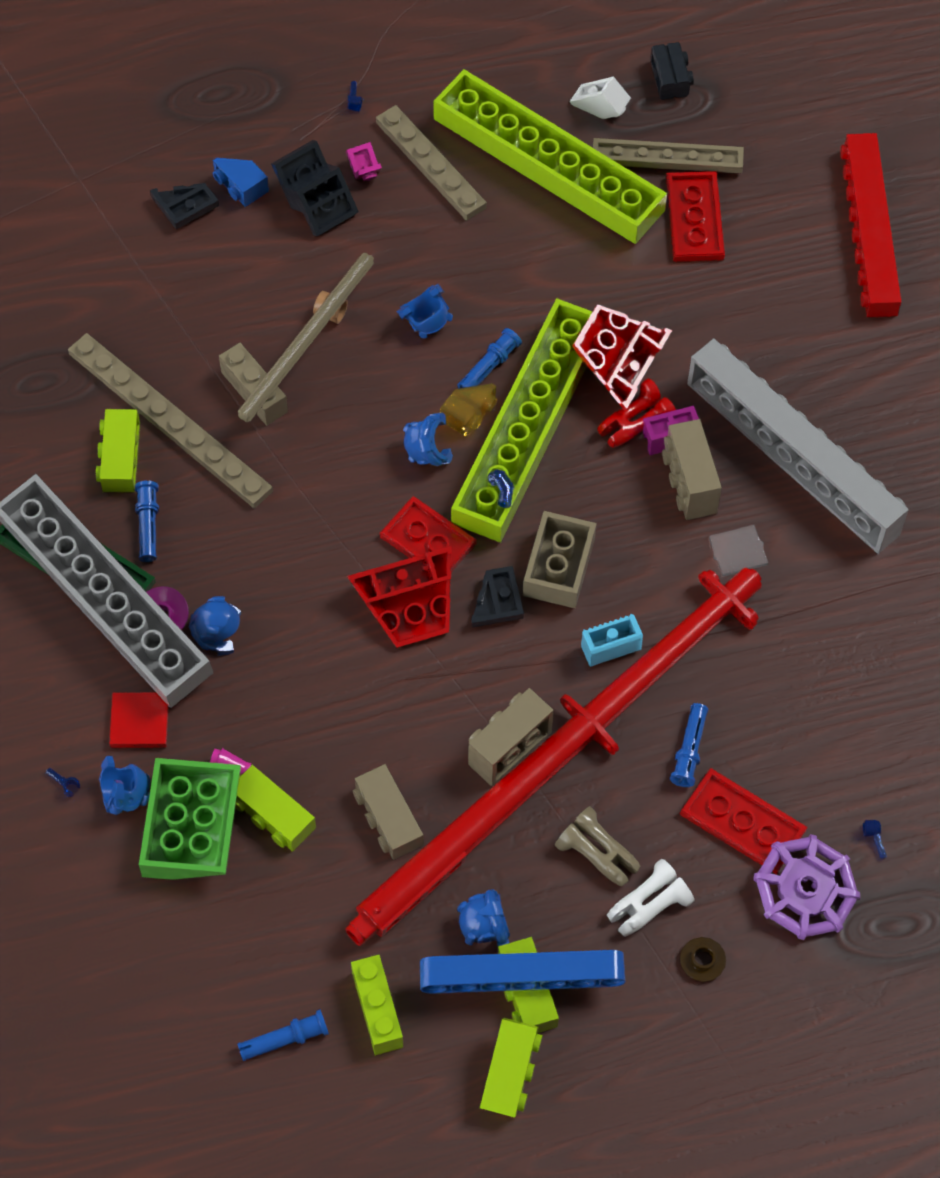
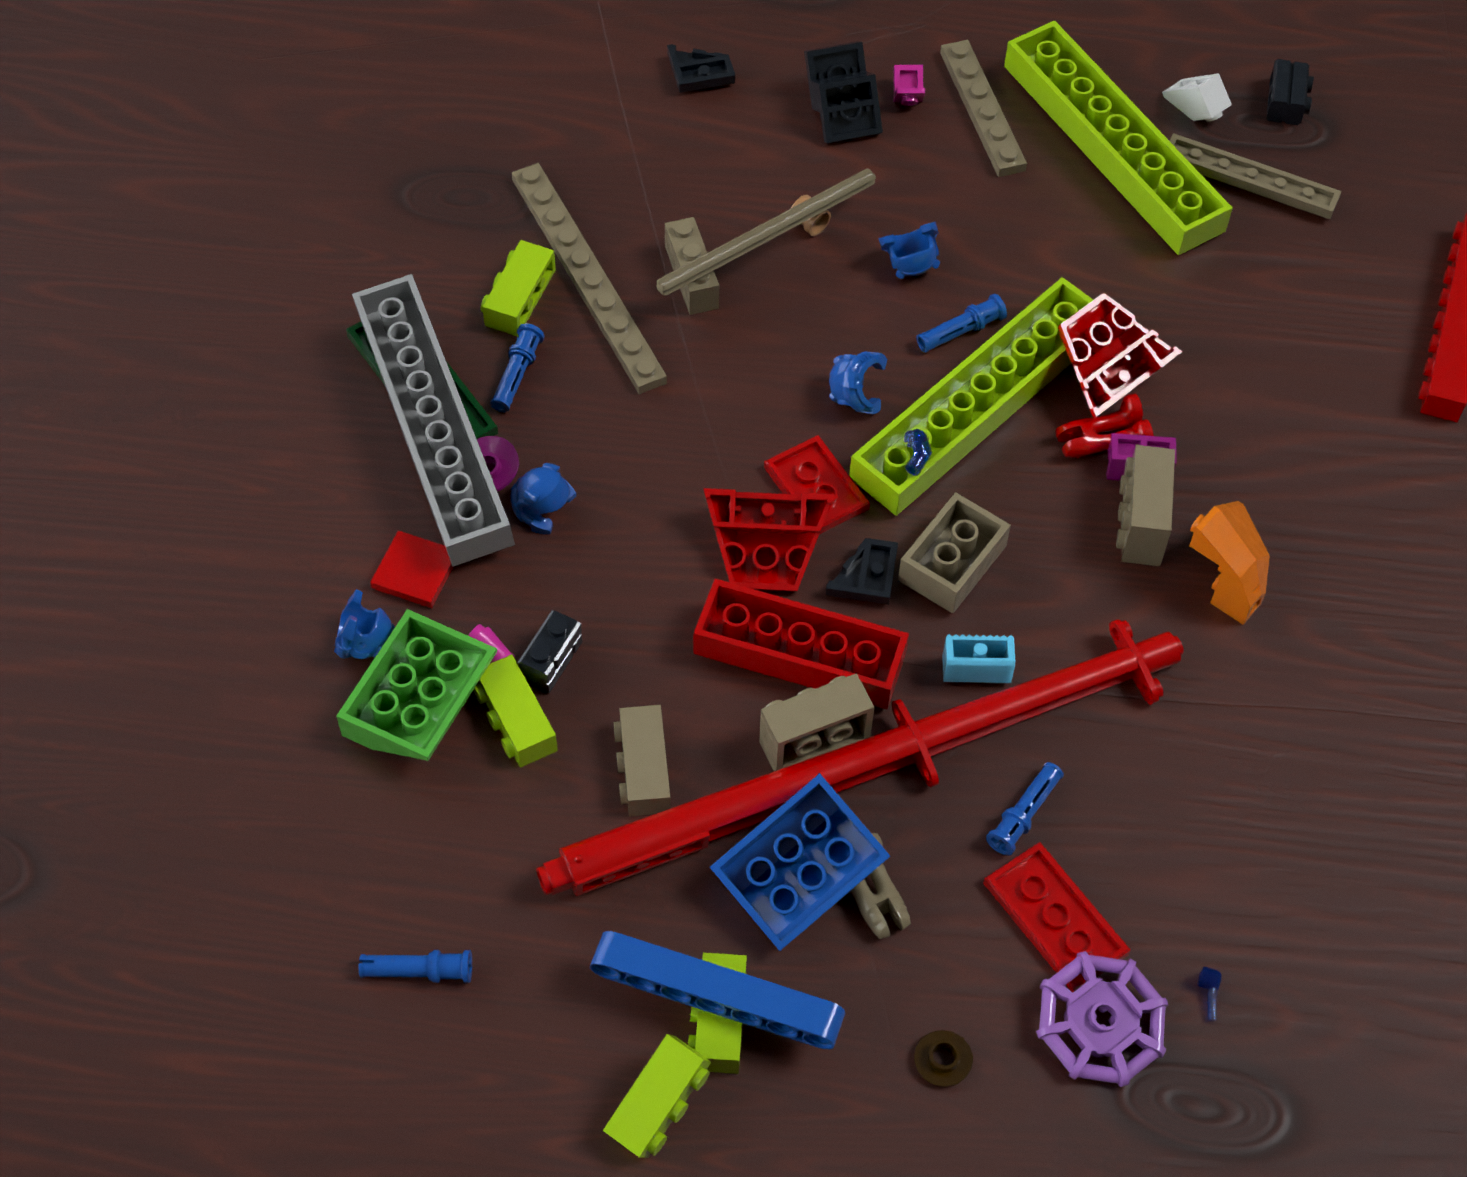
camera: 20 degrees right, 5 degrees down
(63, 781) = (304, 605): clear blue hand -> none
(241, 178) = (769, 62): blue slope -> none
(279, 750) = (550, 651): none -> black brick
(354, 101) = (925, 24): clear blue hand -> none
(377, 1004) = (536, 969): lime brick -> none
(467, 406) = (918, 361): clear yellow slope -> none
(469, 674) = (798, 641): none -> red brick
(483, 919) = (699, 916): blue helmet -> none
(543, 850) = (800, 862): none -> blue slope
(642, 914) = (890, 979): white piece -> none
(695, 216) = (1258, 247): red tile -> none
(738, 550) = (1169, 611): clear piece -> none
(772, 482) = (1235, 545): none -> orange brick
(797, 446) = (1298, 542): light grey brick -> none

